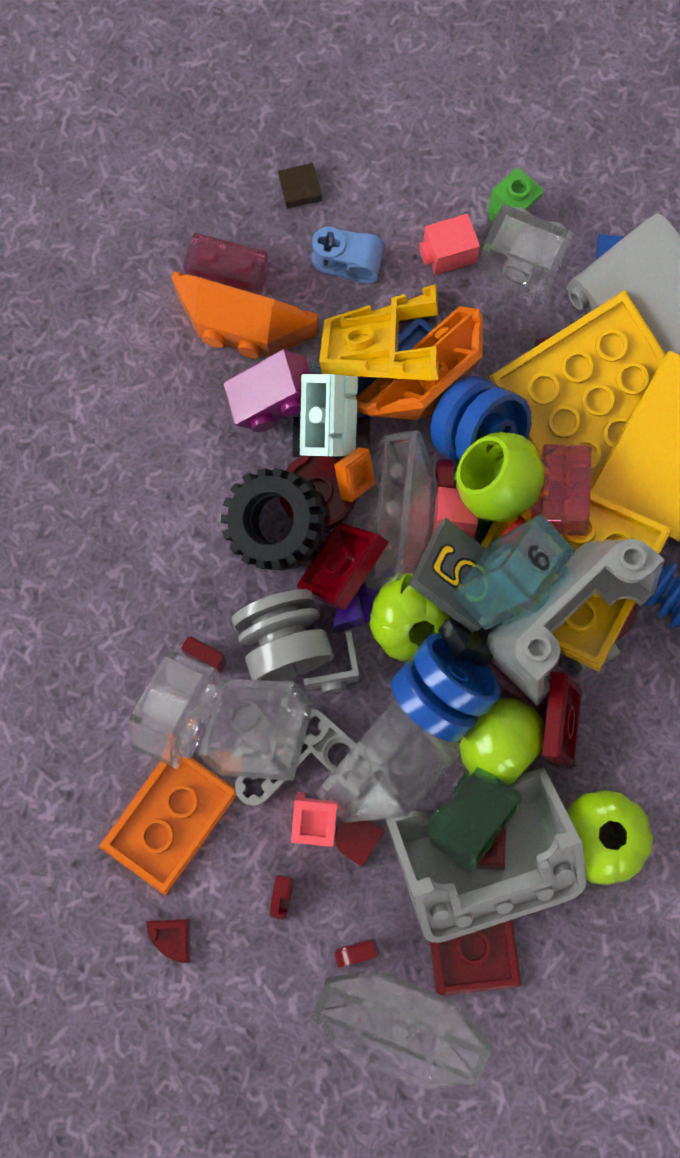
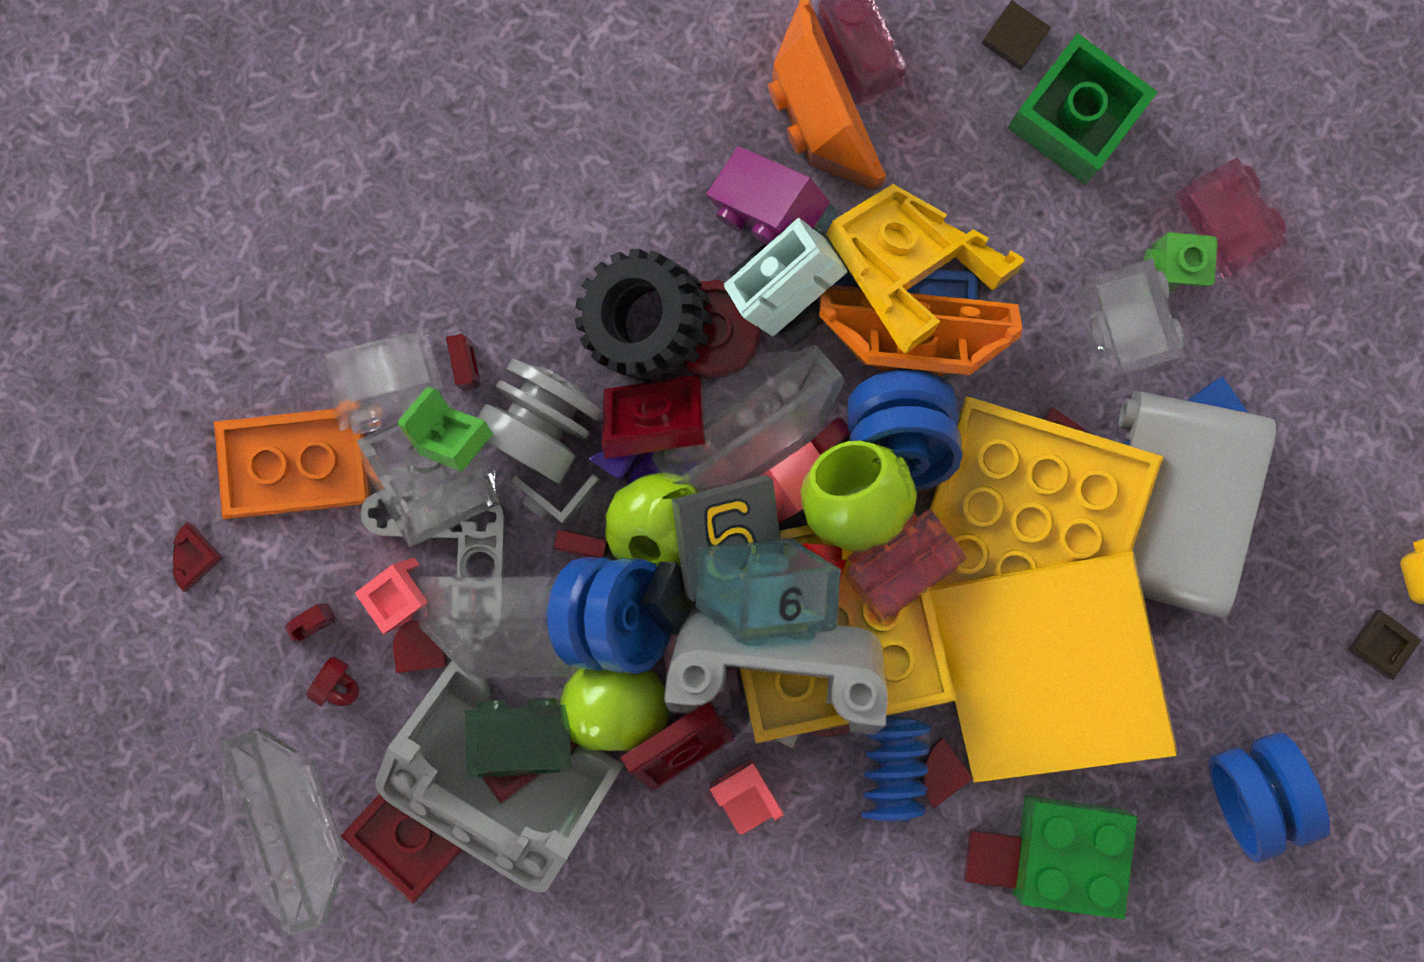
camera: 50 degrees right, 10 degrees up
(244, 690) = (443, 432): none -> bright green bracket
(329, 914) = (326, 681): none -> dark red tile
(351, 255) = (982, 154): medium blue piece -> none
(355, 474) = (752, 352): orange tile -> none
(356, 953) = (316, 733): dark red tile -> none
(377, 181) = (1082, 109): none -> green brick
(380, 678) = (581, 543): none -> dark red tile
(449, 244) = (1078, 238): coral brick -> none
(505, 149) = (1232, 210): none -> clear pink brick
(608, 865) = (619, 845): lime piece -> none
(626, 710) = (746, 797): none -> coral panel

